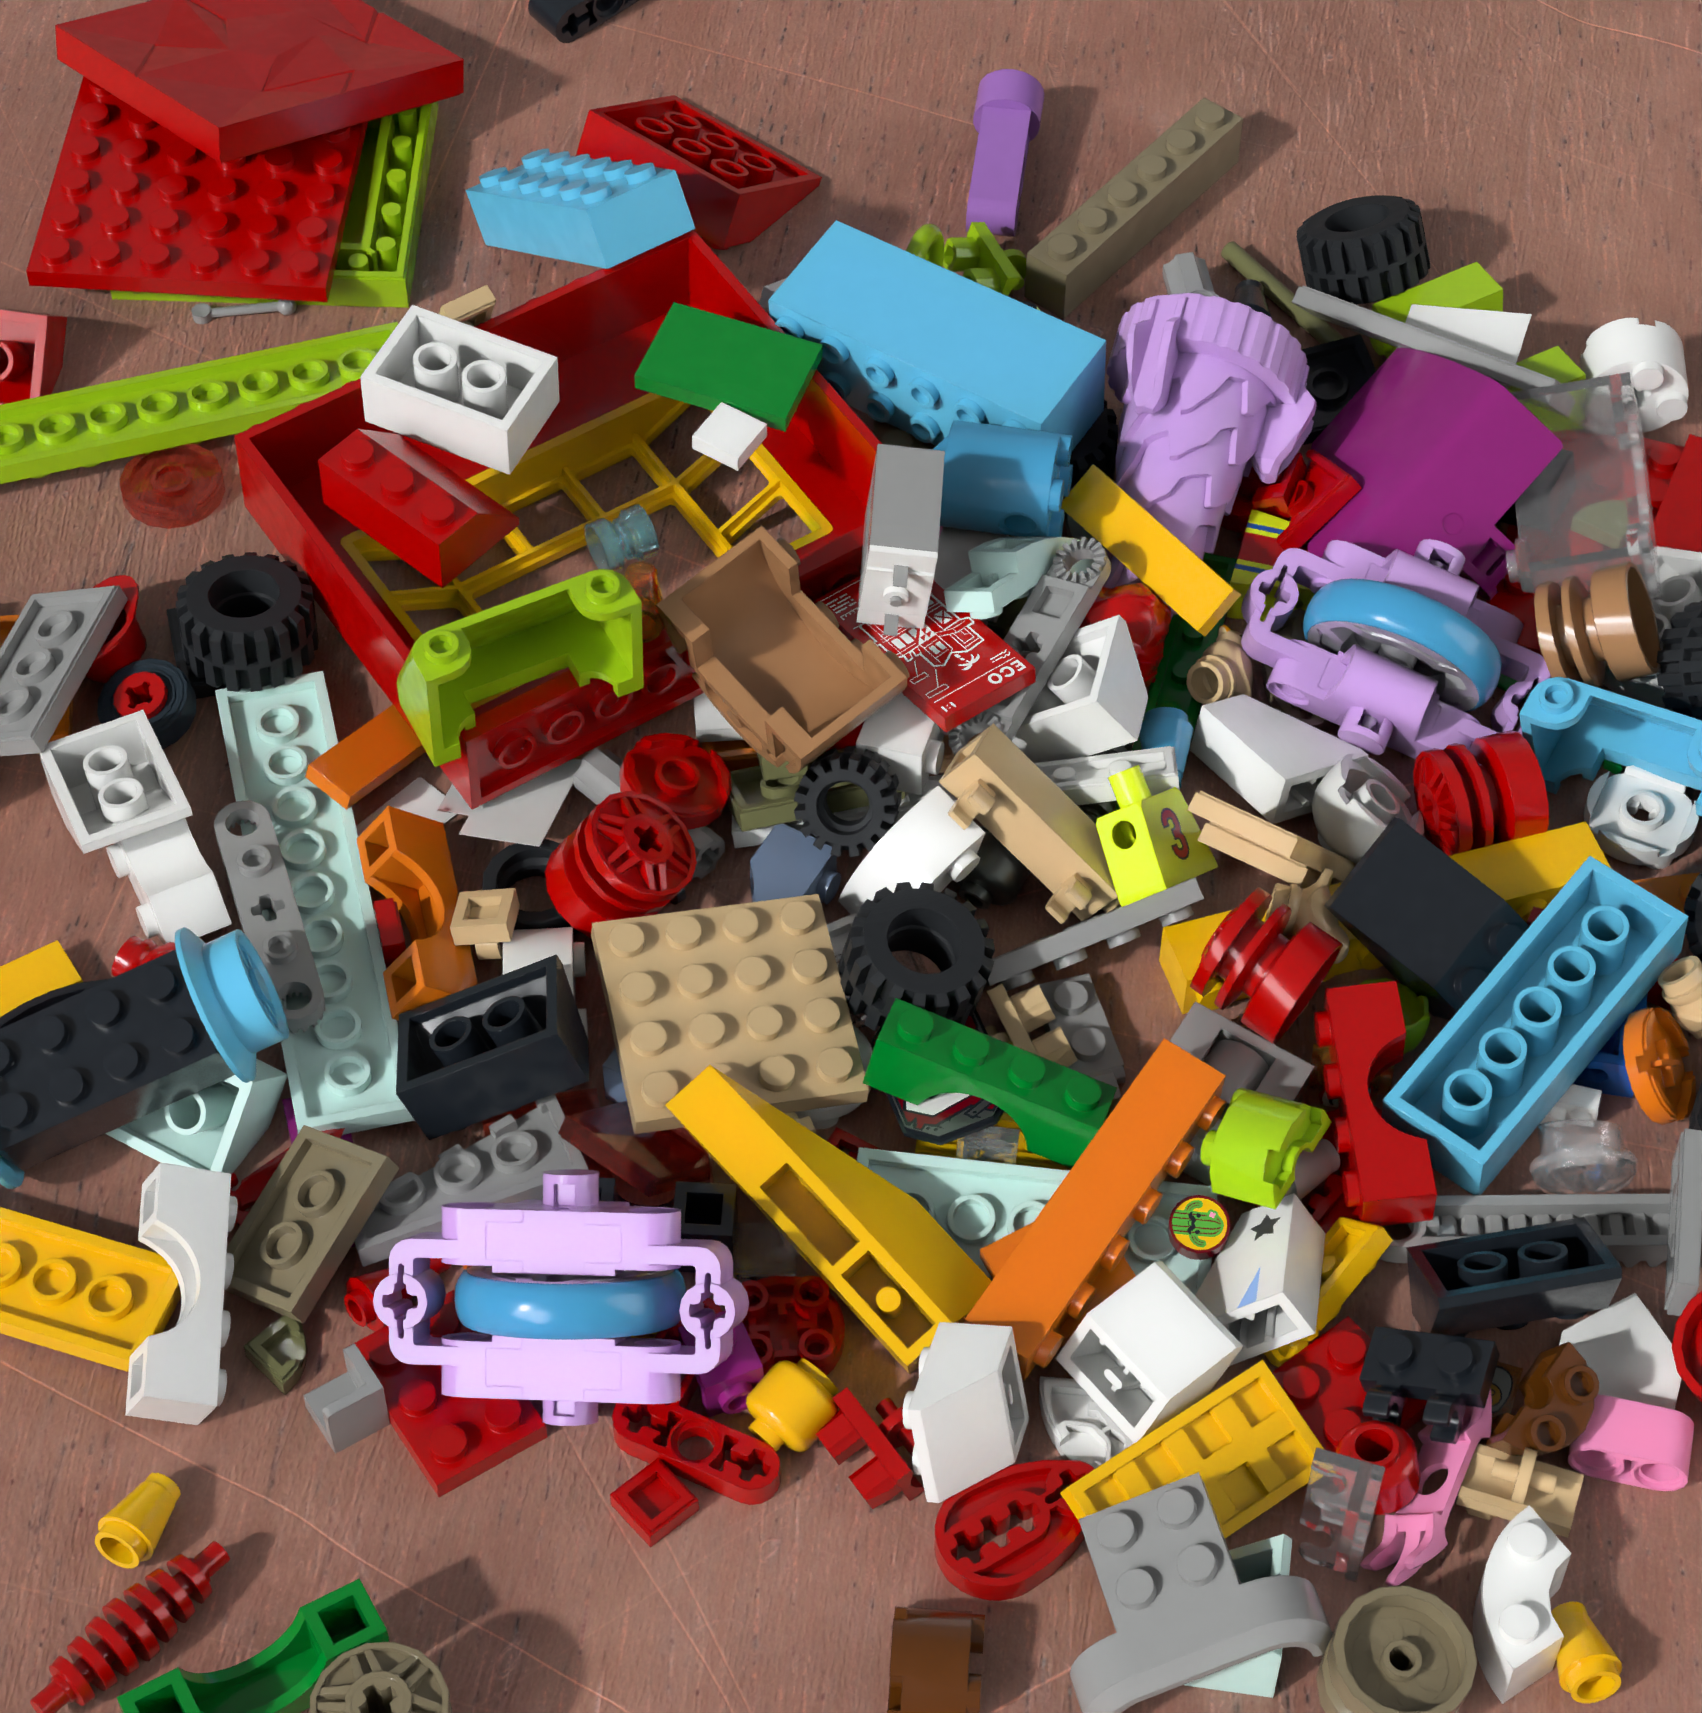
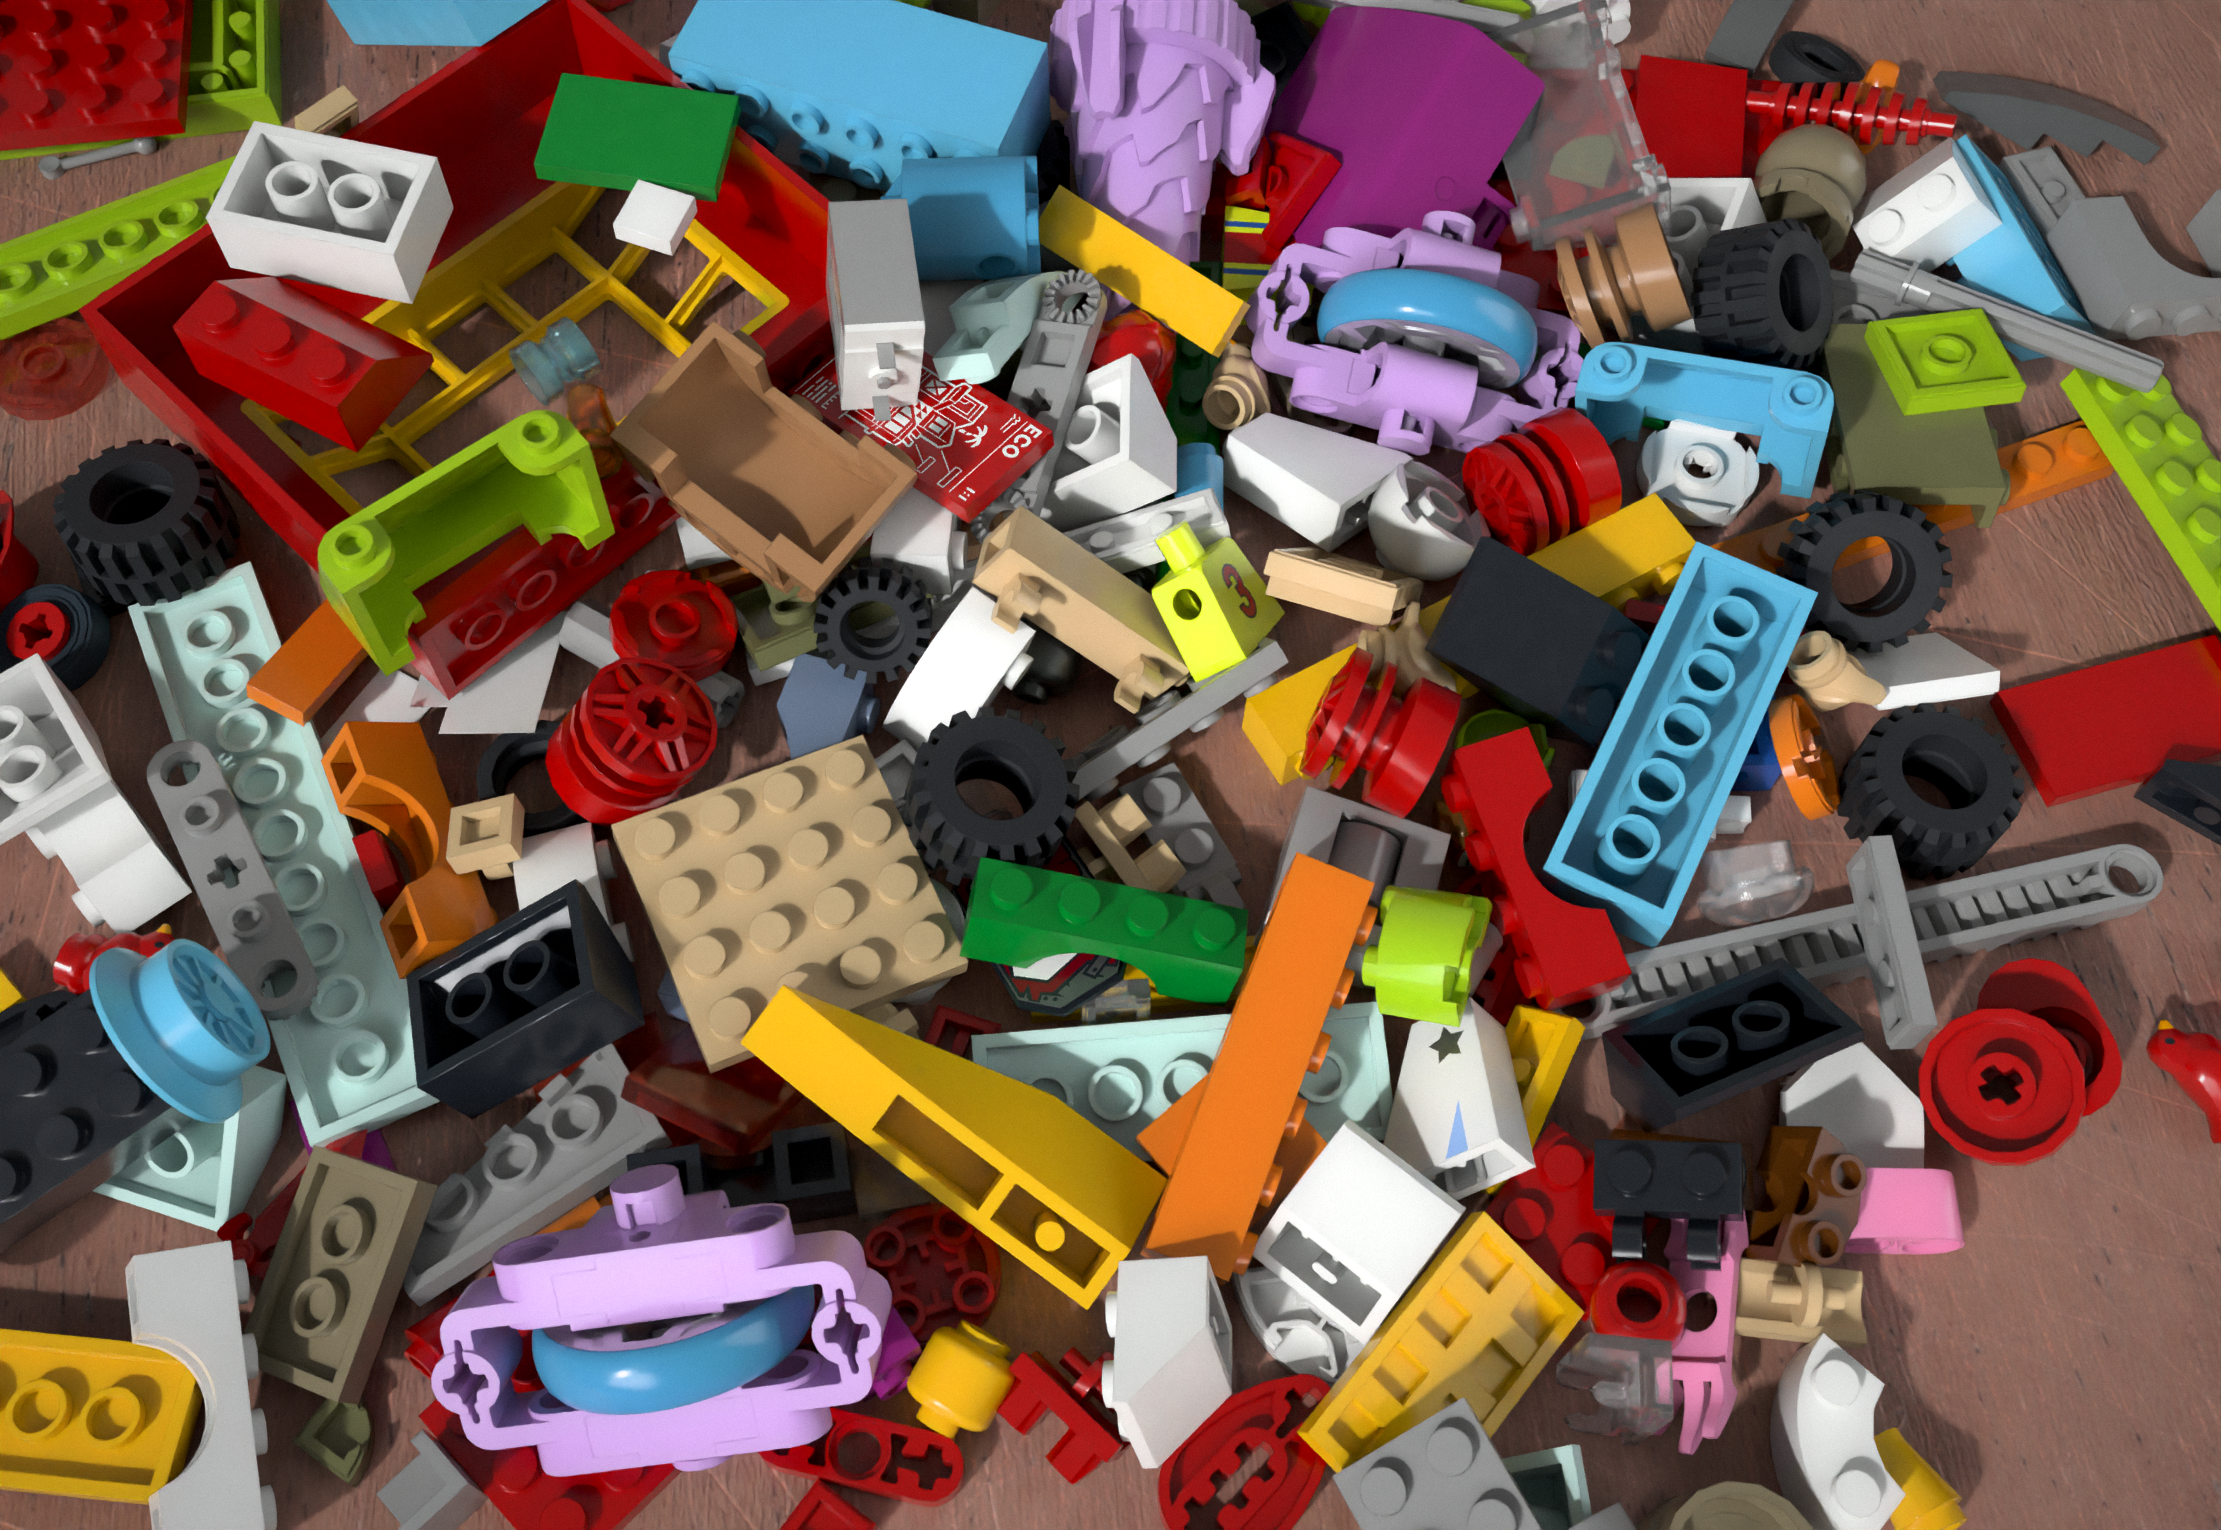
camera: 15 degrees left, 10 degrees up
(1198, 1227) = (1372, 1056): tile -> none

